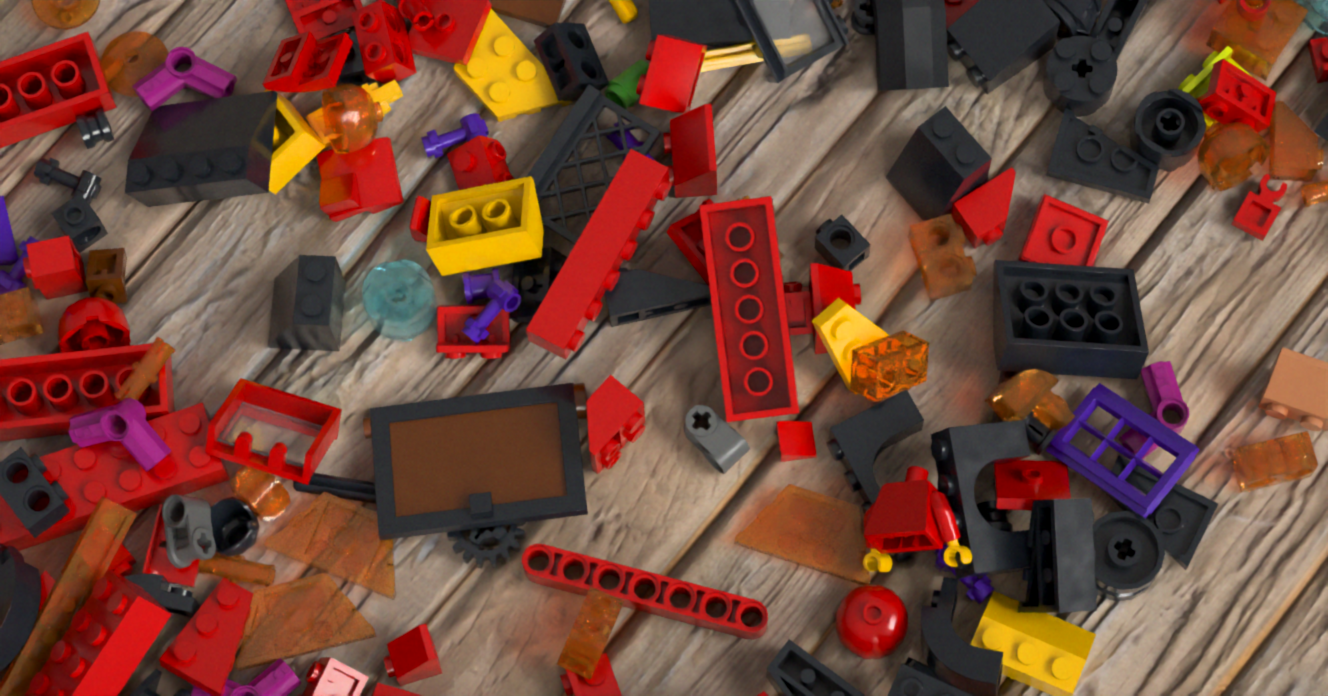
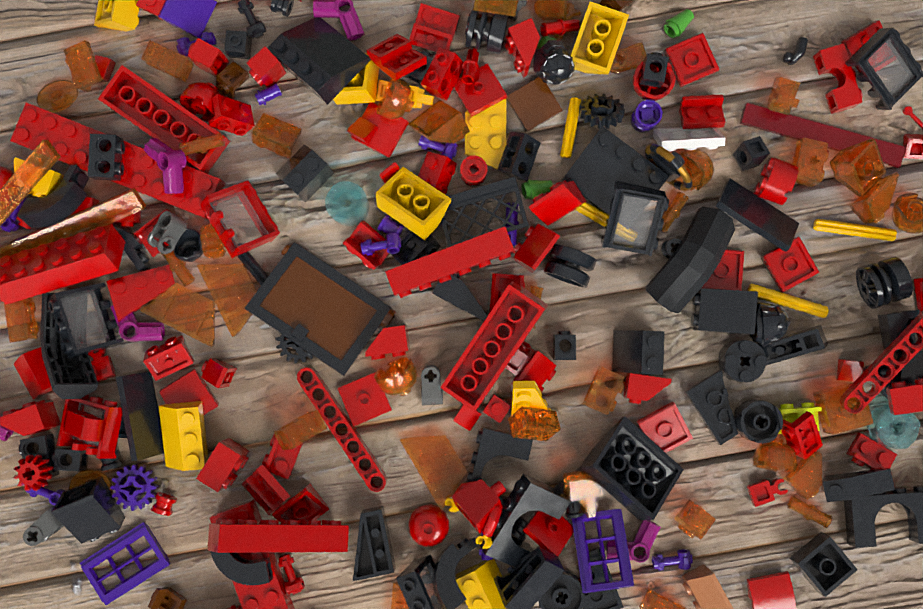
camera: 35 degrees right, 15 degrees up
(145, 218) = (265, 68): none -> red brick
(151, 312) = (231, 115): none -> red bracket
(172, 254) = (268, 94): none -> dark purple pin
(228, 297) = (275, 135): none -> clear orange bracket
(434, 102) = (441, 123): none -> clear orange slope
(528, 126) = (473, 170): none -> red wheel
(640, 531) = (364, 399): none -> red plate
(660, 462) = (397, 378): none -> clear orange cylinder
(757, 136) = (571, 262): none -> black wheel
(825, 398) = (496, 408): none -> red plate
(1202, 312) = (694, 520): none -> clear orange brick
(1238, 381) = (683, 559): none -> dark purple bar

